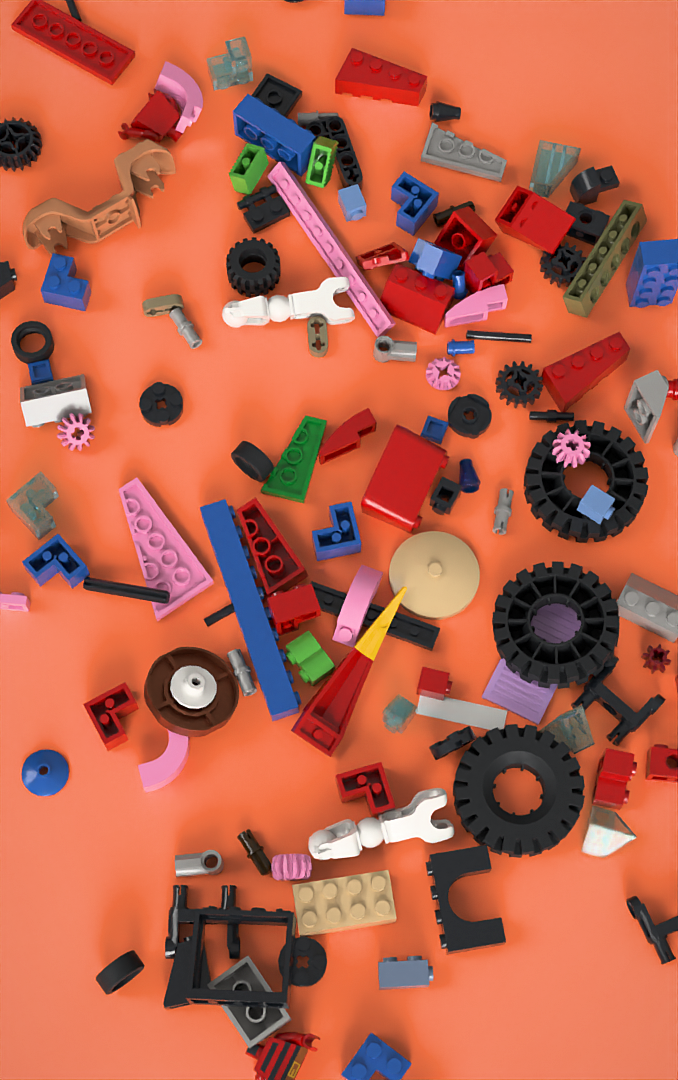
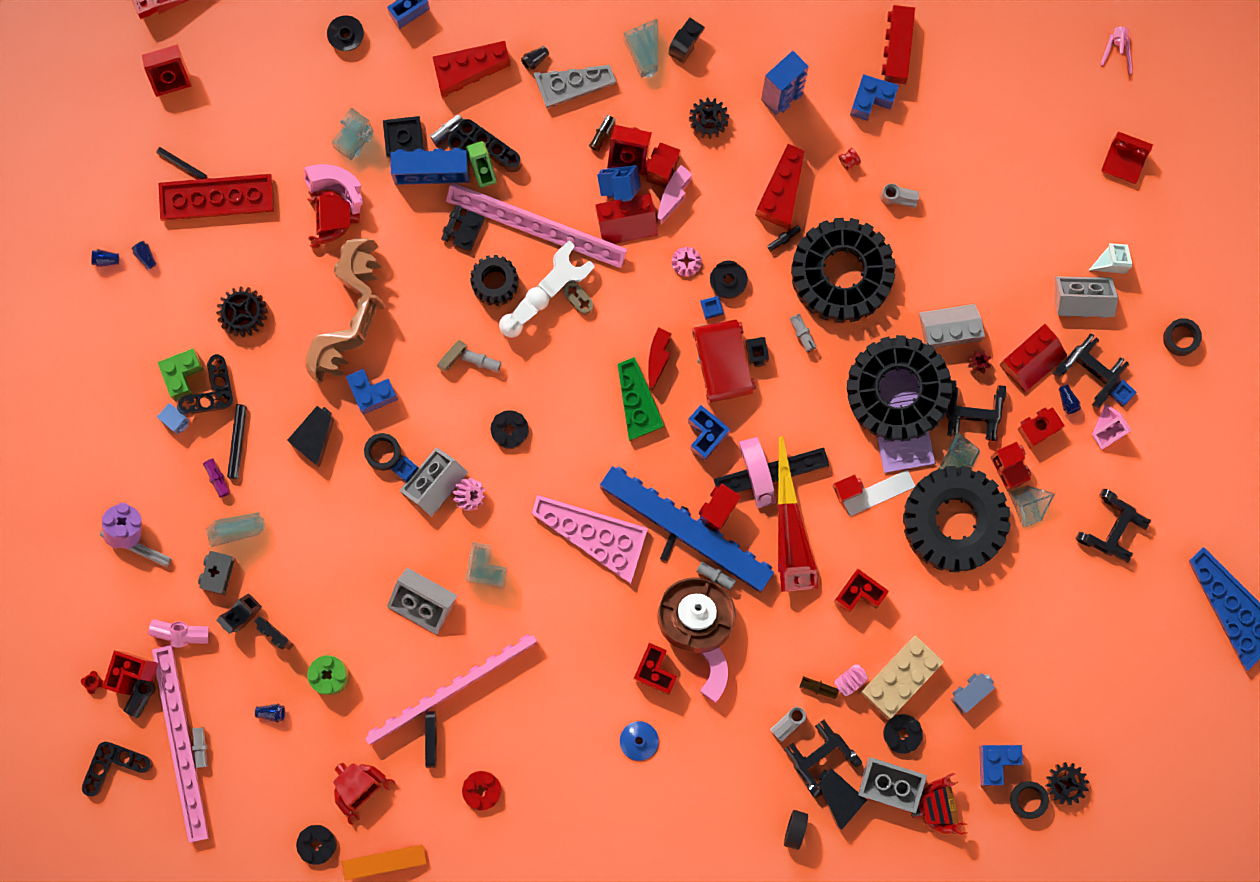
camera: 35 degrees left, 10 degrees up
(56, 558) = (529, 592): blue brick -> none
(126, 590) = (595, 579): black axle -> none
(236, 915) = (843, 738): black window -> none
(248, 168) = (431, 207): bright green brick -> none
(252, 461) = (608, 424): black tyre -> none
(274, 557) = (672, 479): red wedge -> none
(309, 658) = (754, 533): bright green brick -> none
(352, 203) = (525, 178): medium blue brick -> none
(382, 256) = (579, 204): red wing -> none
(396, 350) = (642, 268): light grey piece -> none
(398, 714) = (842, 526): clear light blue slope -> none
(411, 821) = (872, 635): white piece -> none
(416, 201) = (571, 143): blue brick -> none
(438, 575) = (790, 409): tan dish -> none
(452, 743) = (891, 523): black plate -> none
(457, 933) = (949, 608): black arch -> none
(458, 282) = (648, 186): blue pin -> none
(460, 347) = (680, 236): blue pin -> none
(468, 476) = (761, 325): clear blue cone -> none
(498, 336) = (704, 204): black bar -> none
(512, 391) = (740, 226): black gear -> none
(534, 220) = (667, 100): red slope -> none
(566, 443) = (817, 251): bright pink gear -> none
(588, 232) = (693, 82): black brick -> none
(596, 504) = (867, 285): medium blue brick -> none
(605, 258) = (736, 92): olive brick -> none
(646, 403) = (848, 185): light grey slope -> none

